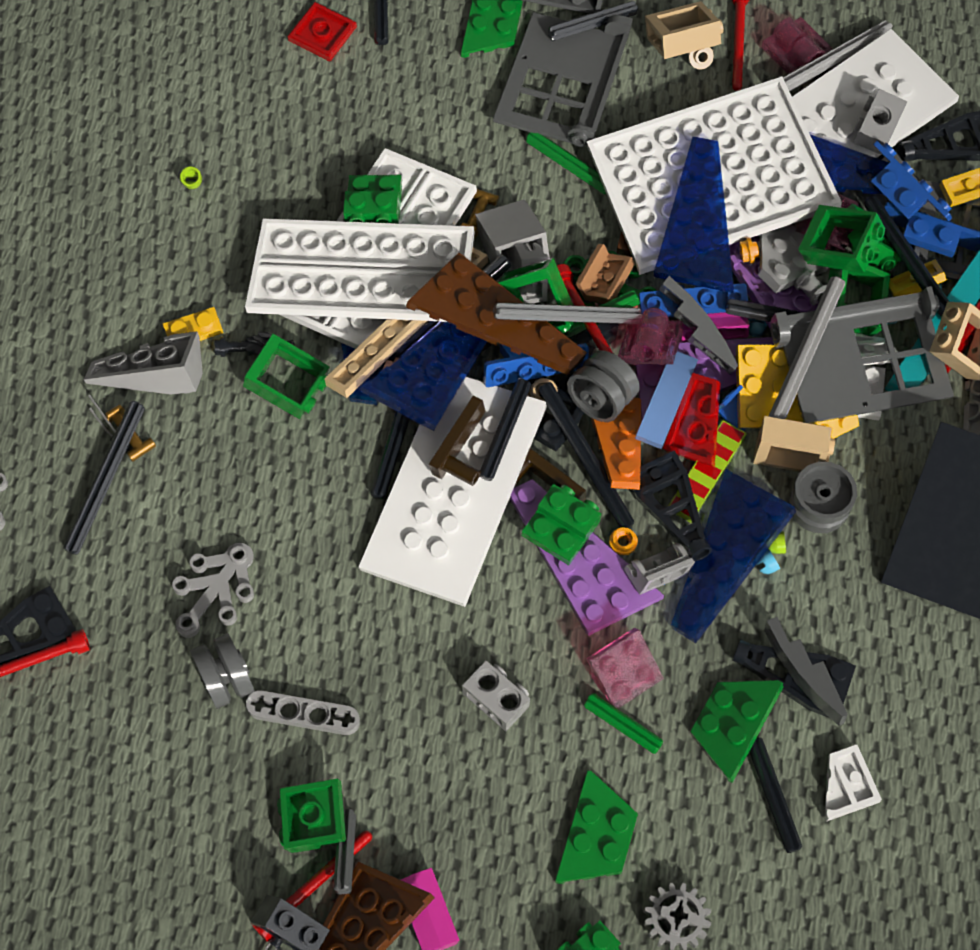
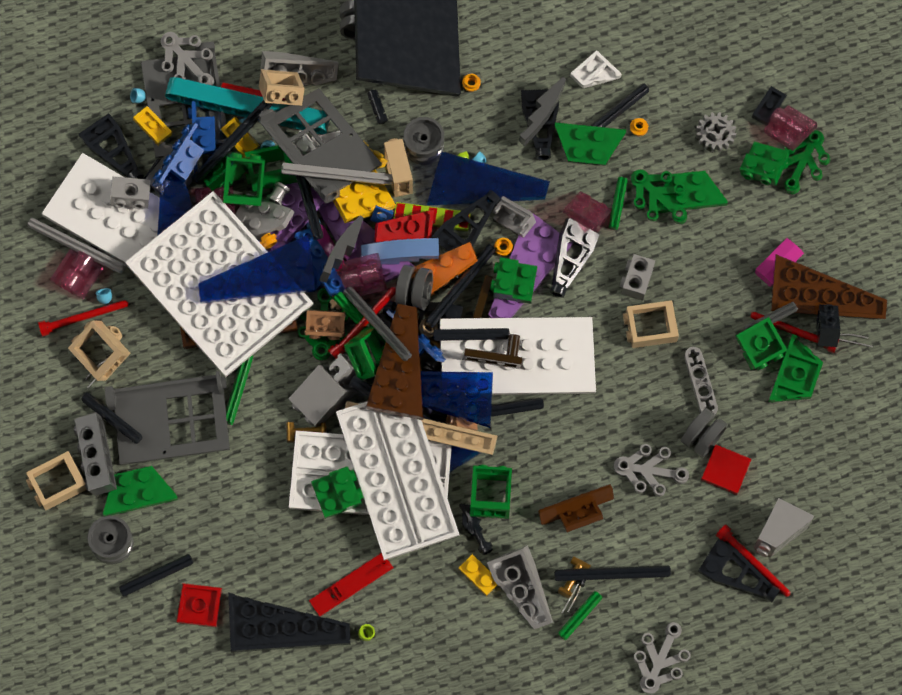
camera: 115 degrees left, 5 degrees up
(35, 711) = (782, 527): none -> light grey slope
(76, 419) = (580, 615): none -> green axle
(164, 688) = (726, 469): none -> red tile
(206, 472) = (578, 510): none -> reddish brown bracket
(248, 852) = (797, 373): none -> green wing
(252, 90) = (275, 627): none -> black wing
(259, 183) = (350, 584): none -> red piece
(407, 708) = (670, 337): none -> tan window
(601, 628) = (581, 236): none -> plate
(611, 780) = (657, 193): none -> green plant
(726, 814) = (638, 131): none -> light orange plate
(756, 66) = (104, 295): none -> medium azure hinge
(897, 597) = (471, 77): none -> light orange plate
(898, 467) = (377, 106): none -> black axle

